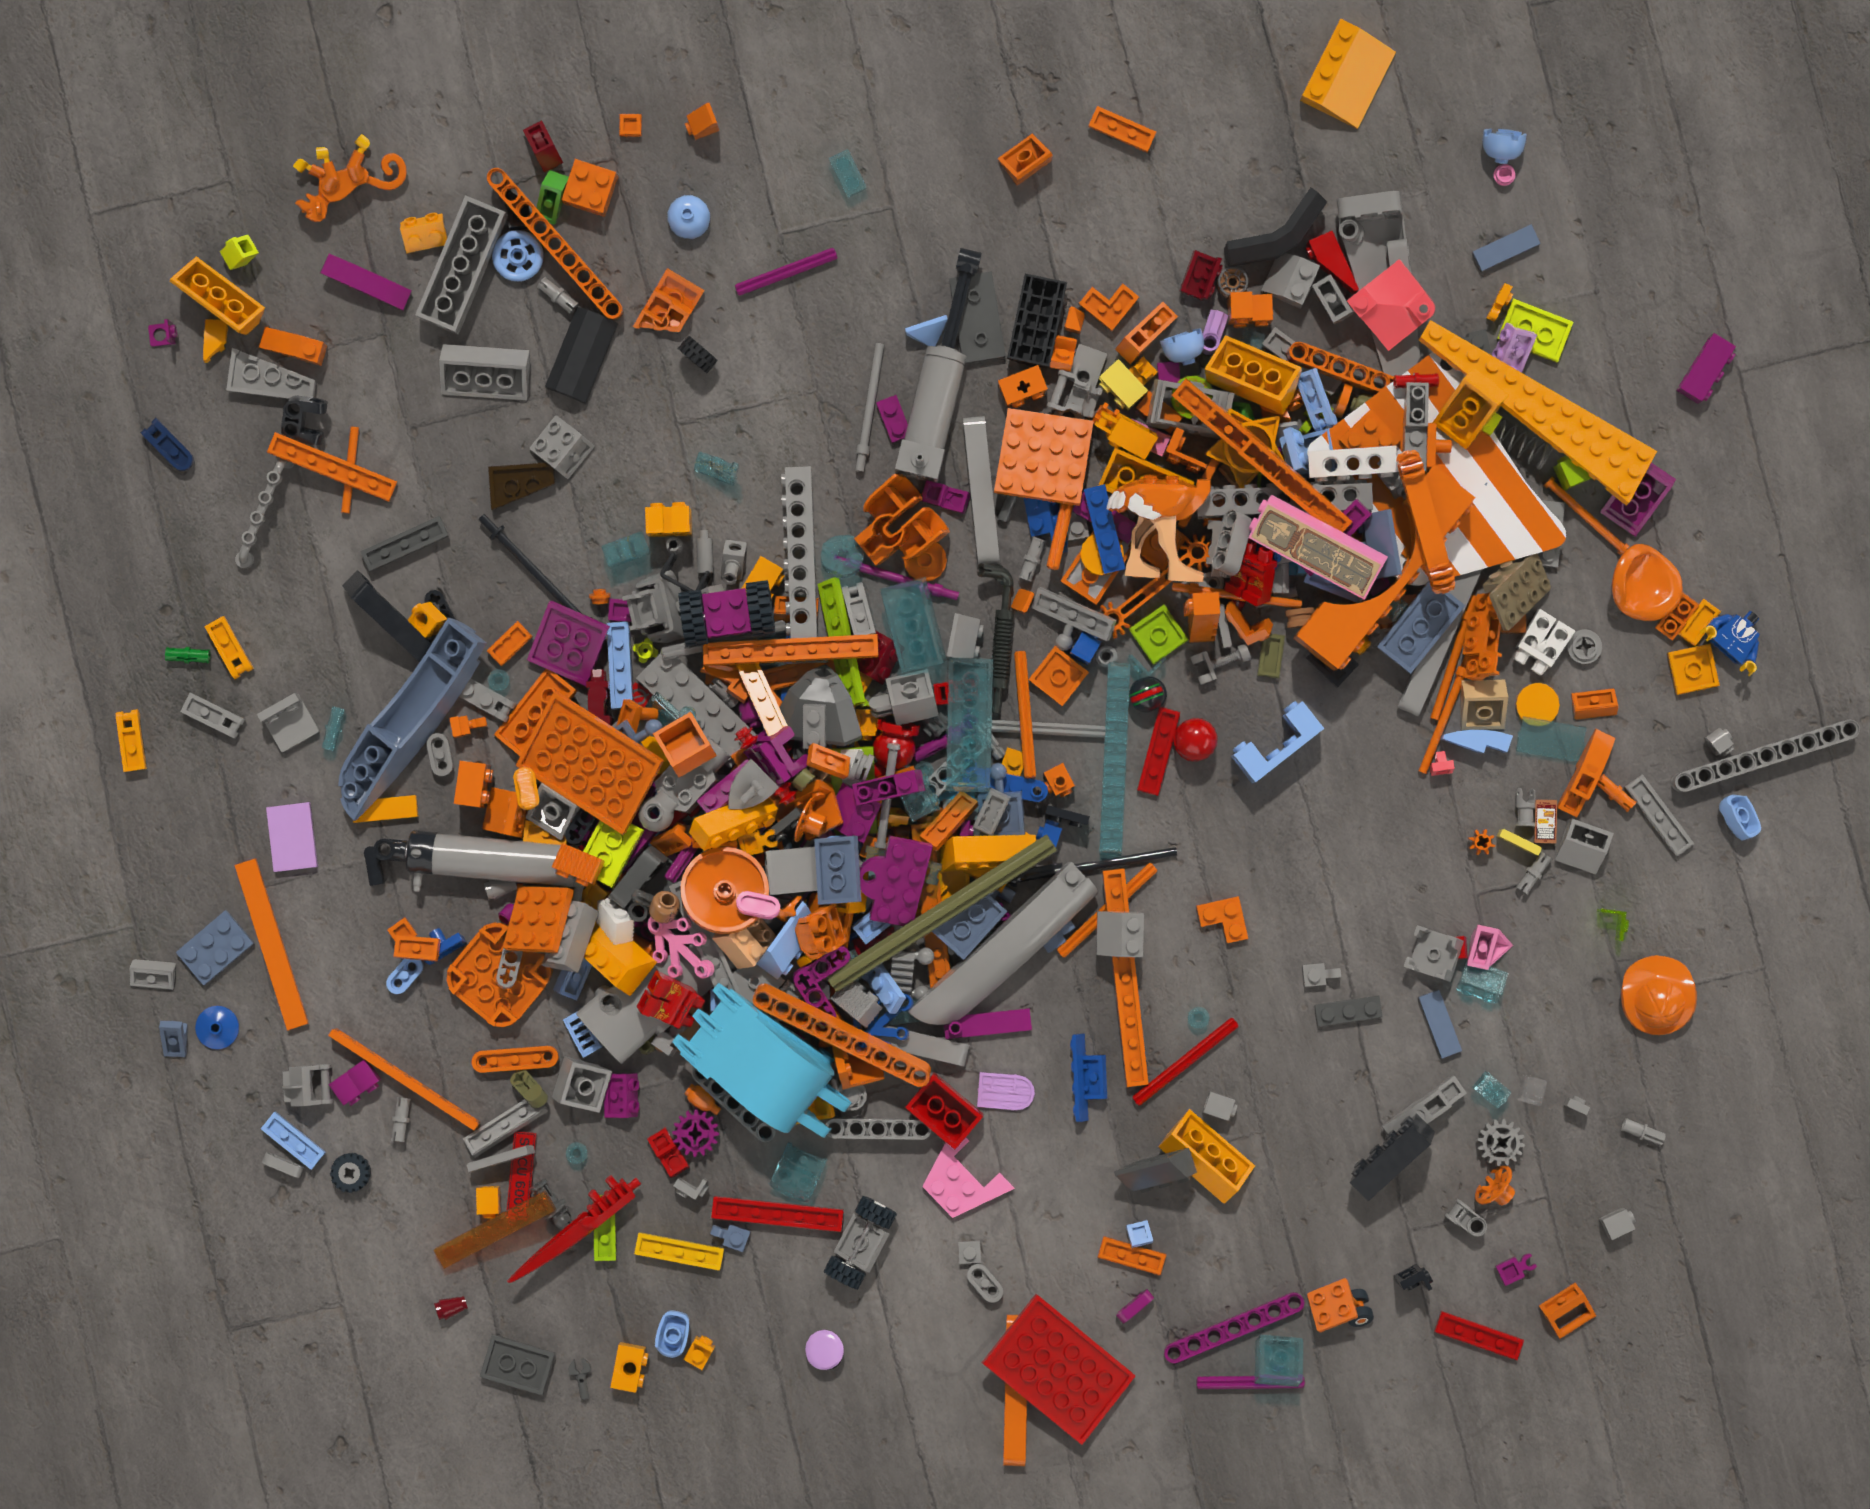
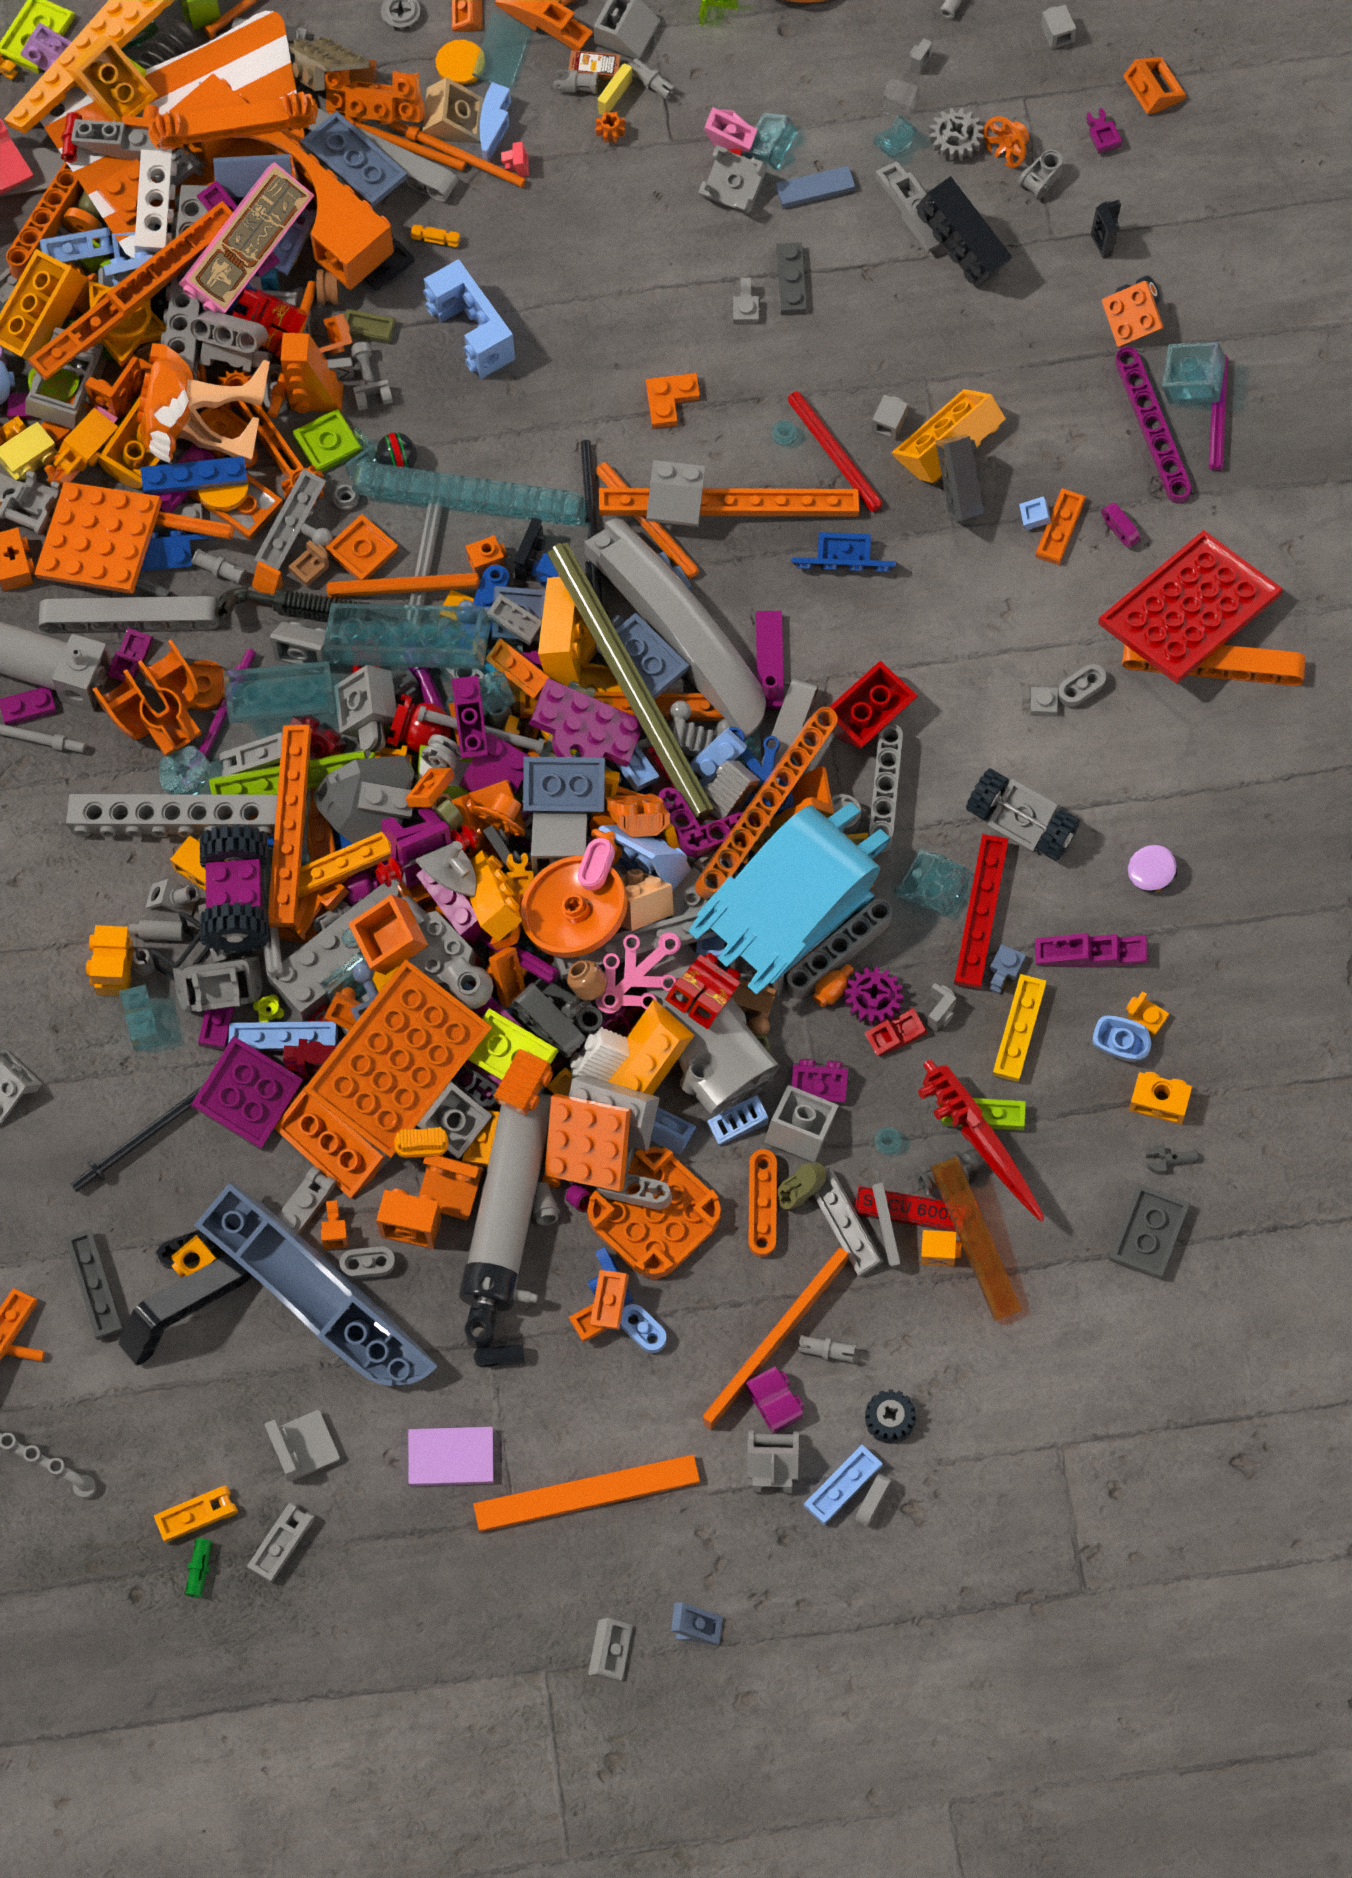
camera: 85 degrees left, 20 degrees down
(131, 741) = (301, 1650): light orange plate -> none
(215, 947) = (583, 1566): sand blue plate -> none
(227, 1024) = (690, 1587): blue dish -> none
(333, 728) = (317, 1391): clear light blue pin -> none
(391, 809) = (429, 1331): light orange tile -> none
(449, 1307) = (1071, 1308): dark red cone -> none
(492, 676) = (278, 1178): clear light blue plate -> none
(509, 643) = (238, 1166): orange plate -> none
(517, 481) = (35, 1141): dark brown wing -> none
(599, 596) = (194, 1055): orange plate -> none
(664, 1040) = (755, 1012): light grey piece -> none
(716, 468) = (55, 903): clear light blue slope -> none
(750, 1304) = (1093, 951): none -> magenta slope
(956, 1187) = (963, 710): bright pink wing -> none
(1004, 1091) = (852, 648): lavender window -> none
(1039, 634) = (310, 564): none -> medium nougat bracket
(1085, 647) = (333, 513): blue slope -> none
(1158, 751) = (465, 452): red tile -> none
(1195, 739) = (456, 406): red tile -> none
(1363, 701) = (435, 235): none -> light orange axle
(1479, 1335) = (1177, 176): red tile -> none
(1540, 648) = (389, 46): white hips -> none

